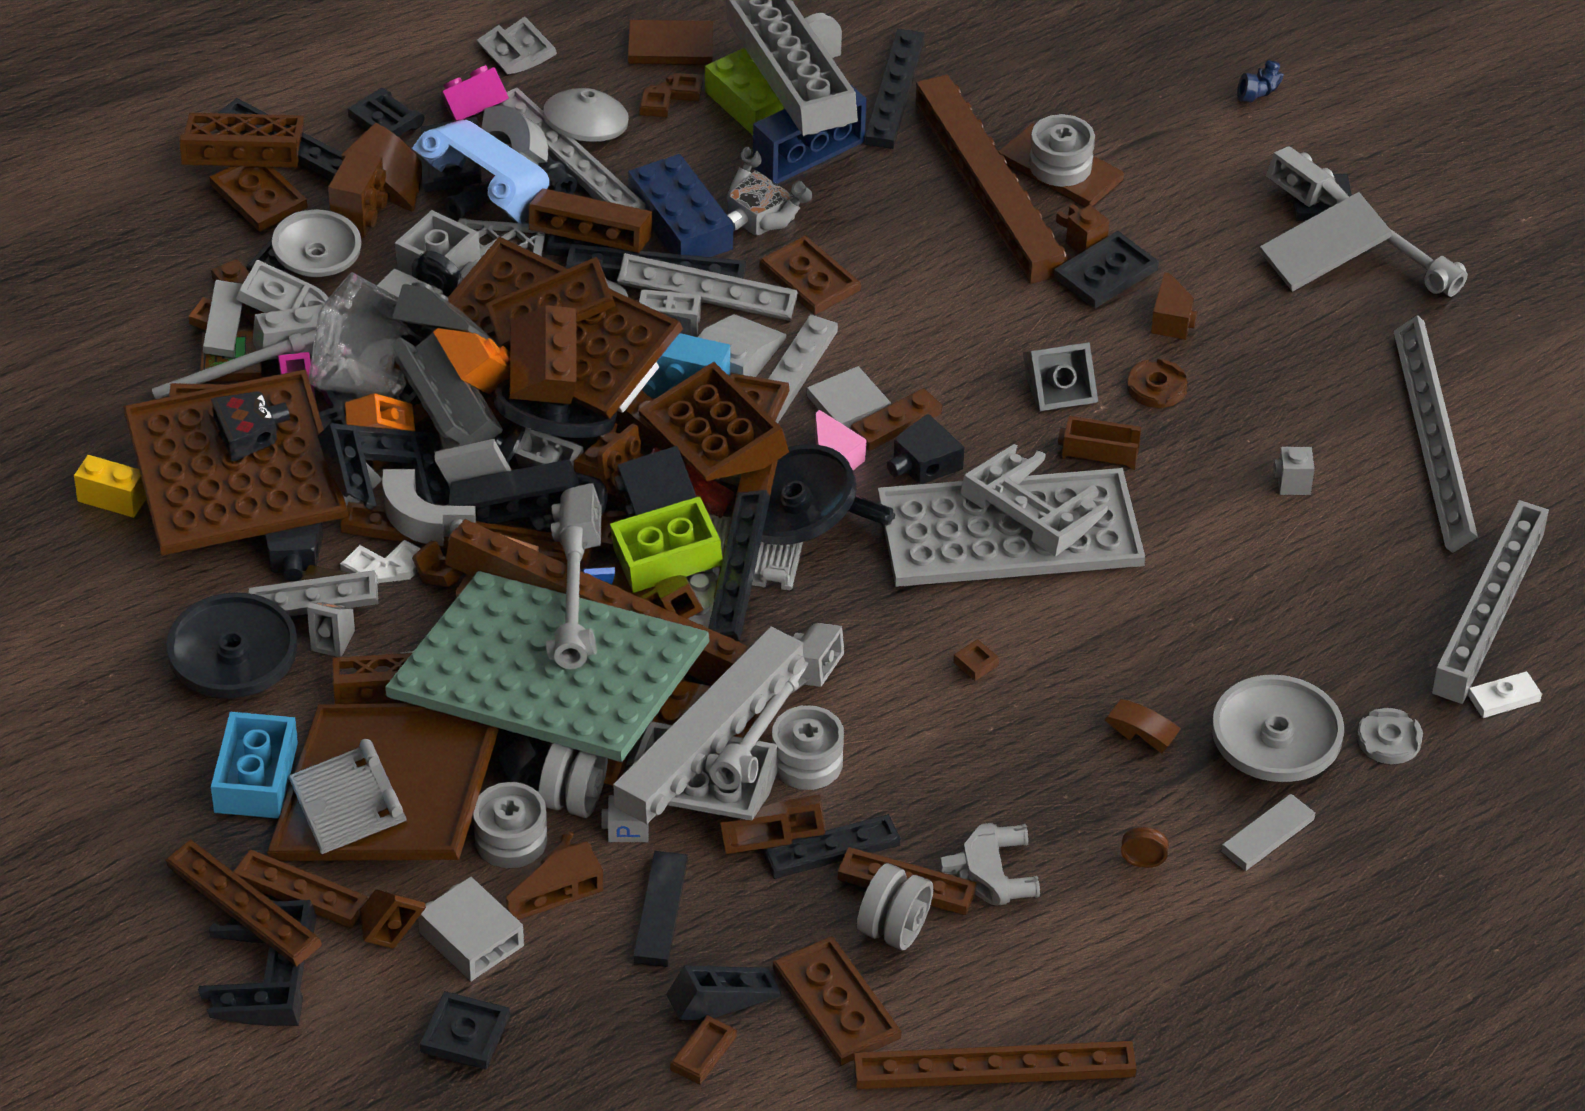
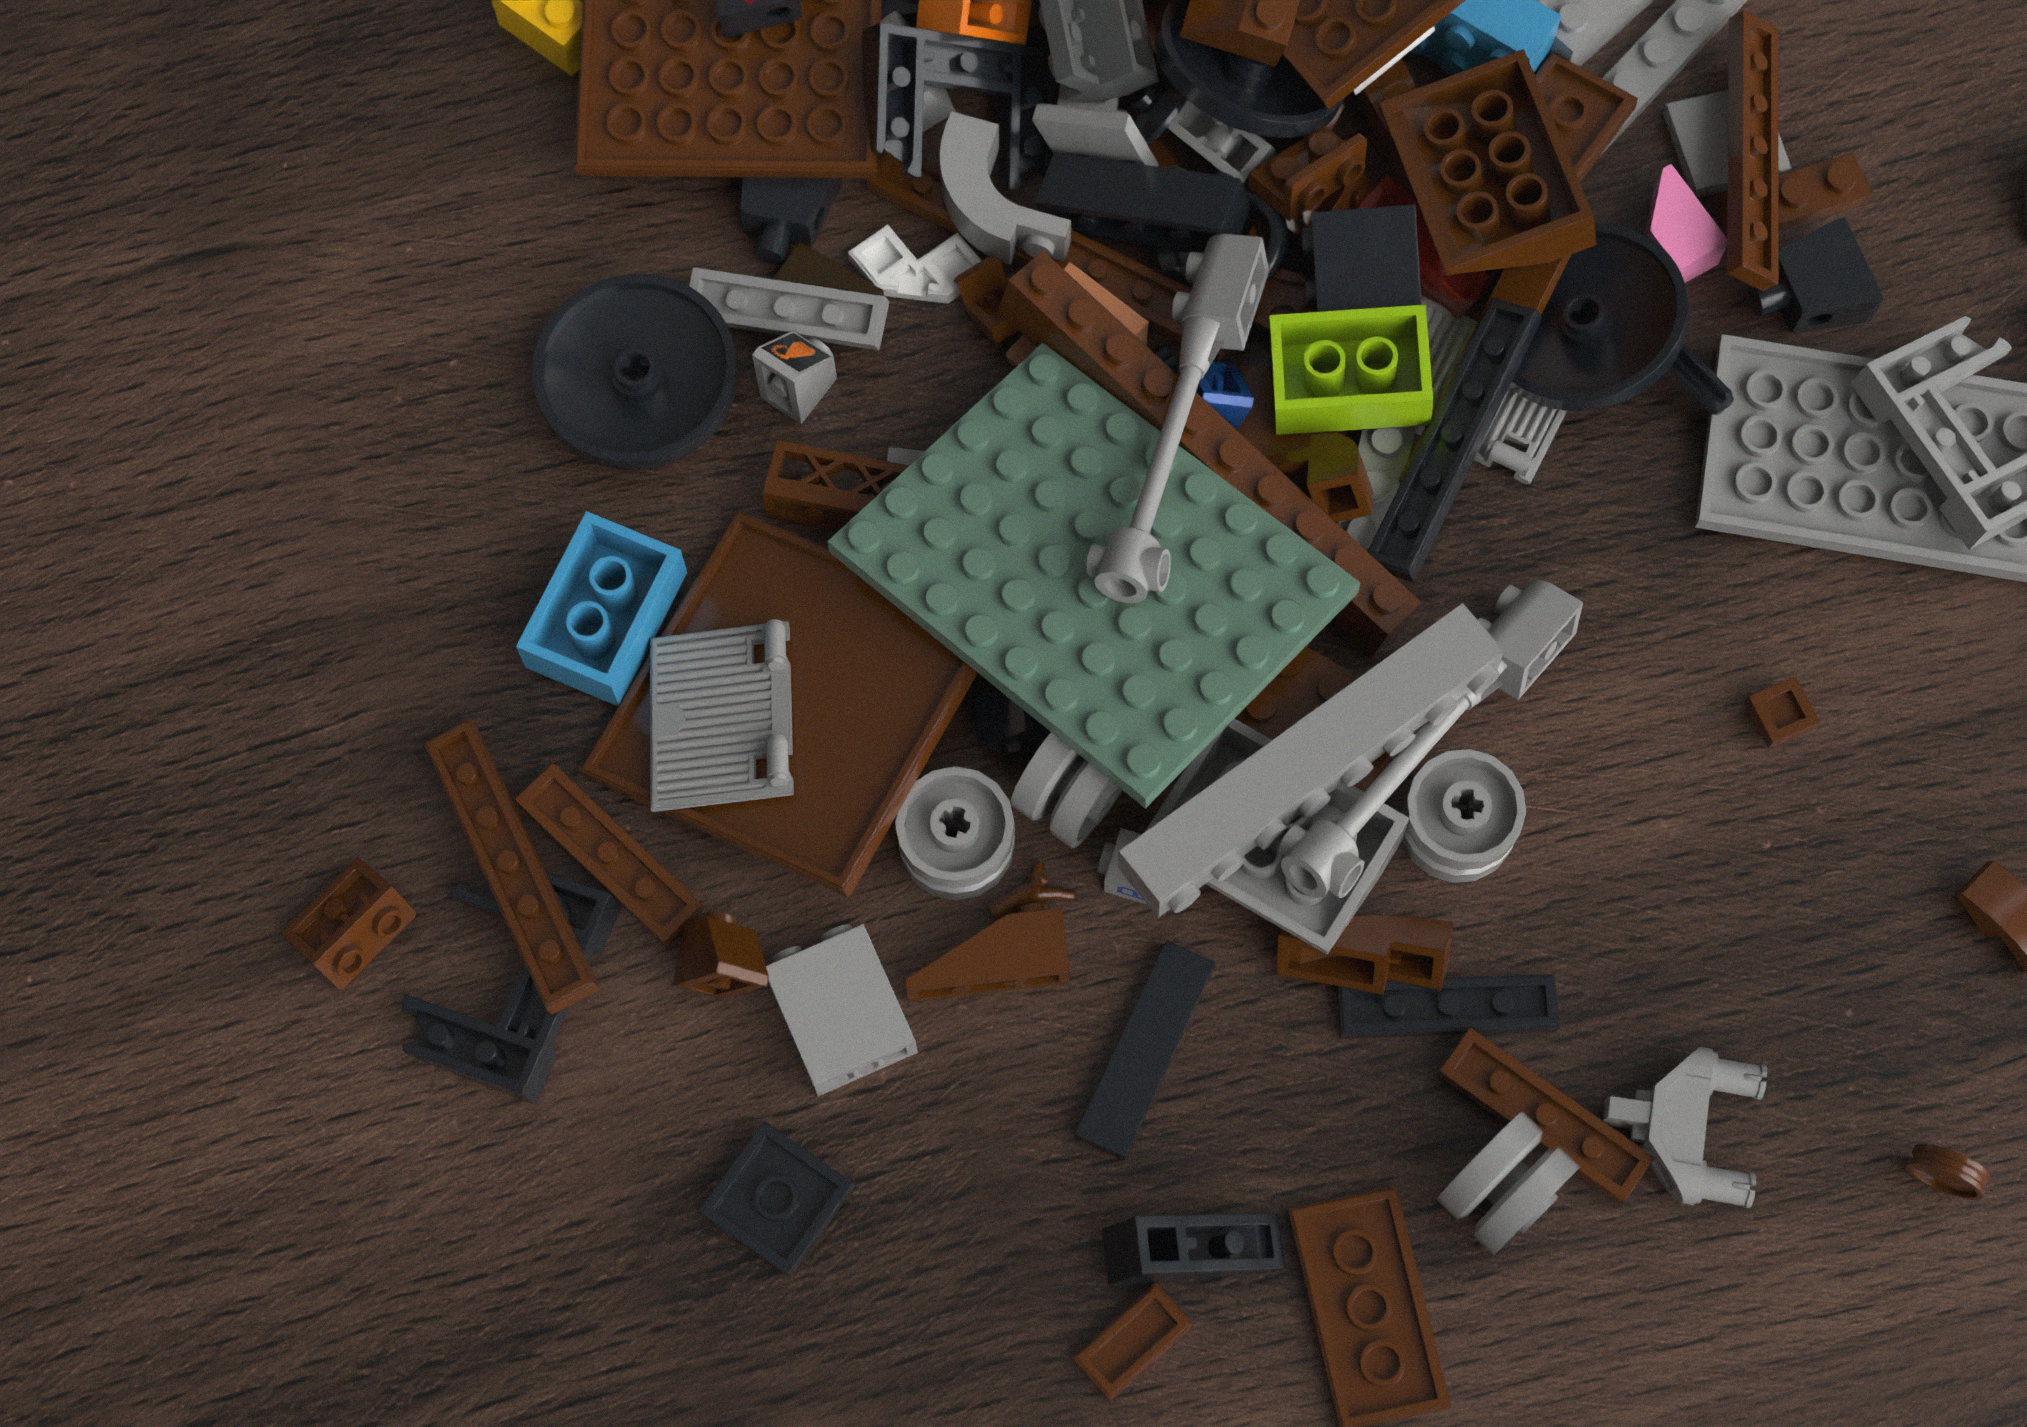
camera: 20 degrees right, 25 degrees up
(151, 959) = (349, 923): none -> reddish brown bracket
(864, 393) = (1753, 152): none -> reddish brown plate

